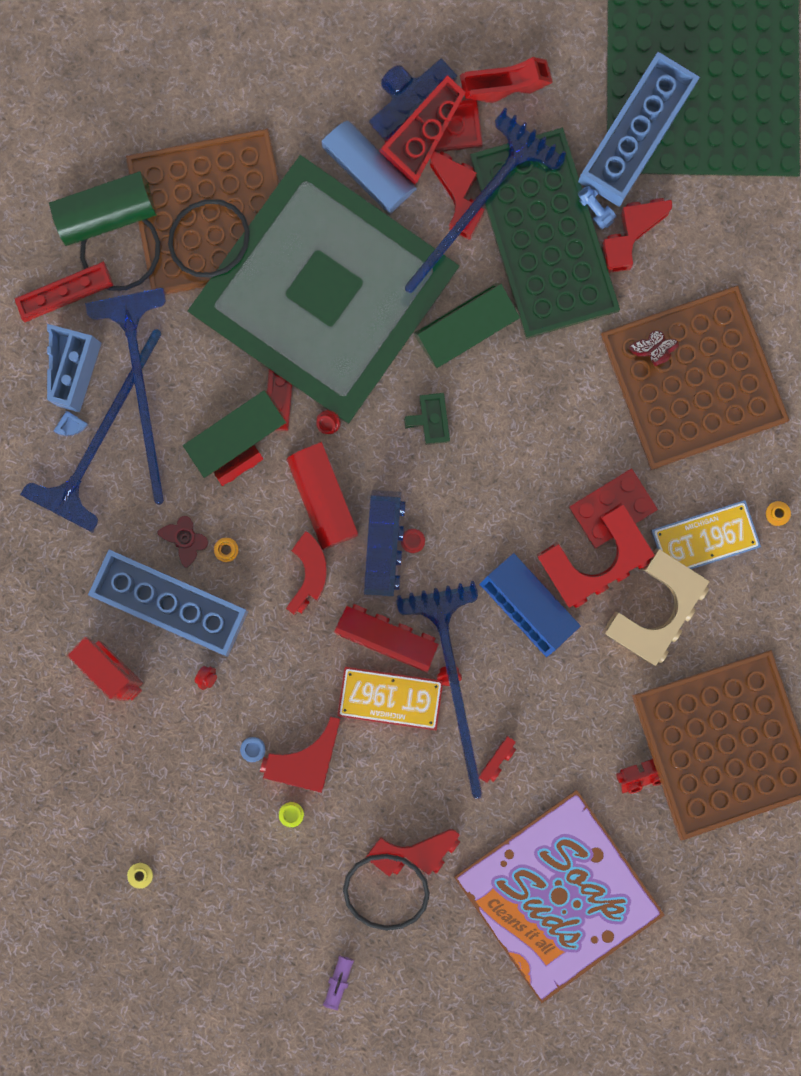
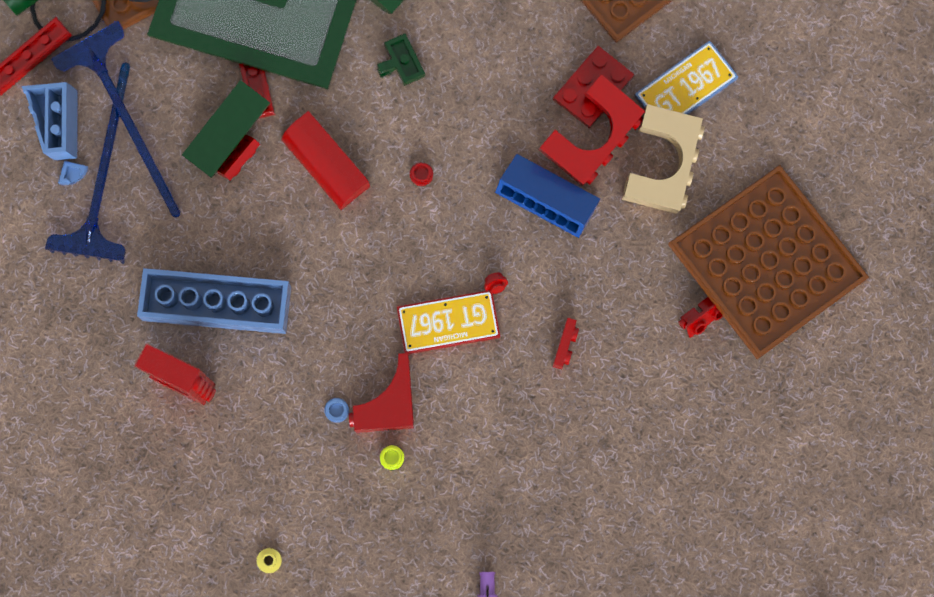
camera: 15 degrees left, 5 degrees down
(185, 539) = (211, 240): dark red animal -> none
(206, 677) = (271, 358): red plate -> none
(226, 542) = (249, 231): light orange plate -> none
(315, 573) = (334, 217): red arch -> none
(328, 422) = (308, 93): red plate -> none
(383, 543) = (394, 182): clear blue wedge -> none
(386, 638) = (426, 267): red slope -> none
(395, 858) = (508, 533): black piece -> none
(425, 854) = (527, 452): red arch -> none
(439, 609) = (466, 227): clear blue piece -> none
(559, 896) = (664, 450): tile -> none
(770, 513) = (743, 49): light orange plate -> none

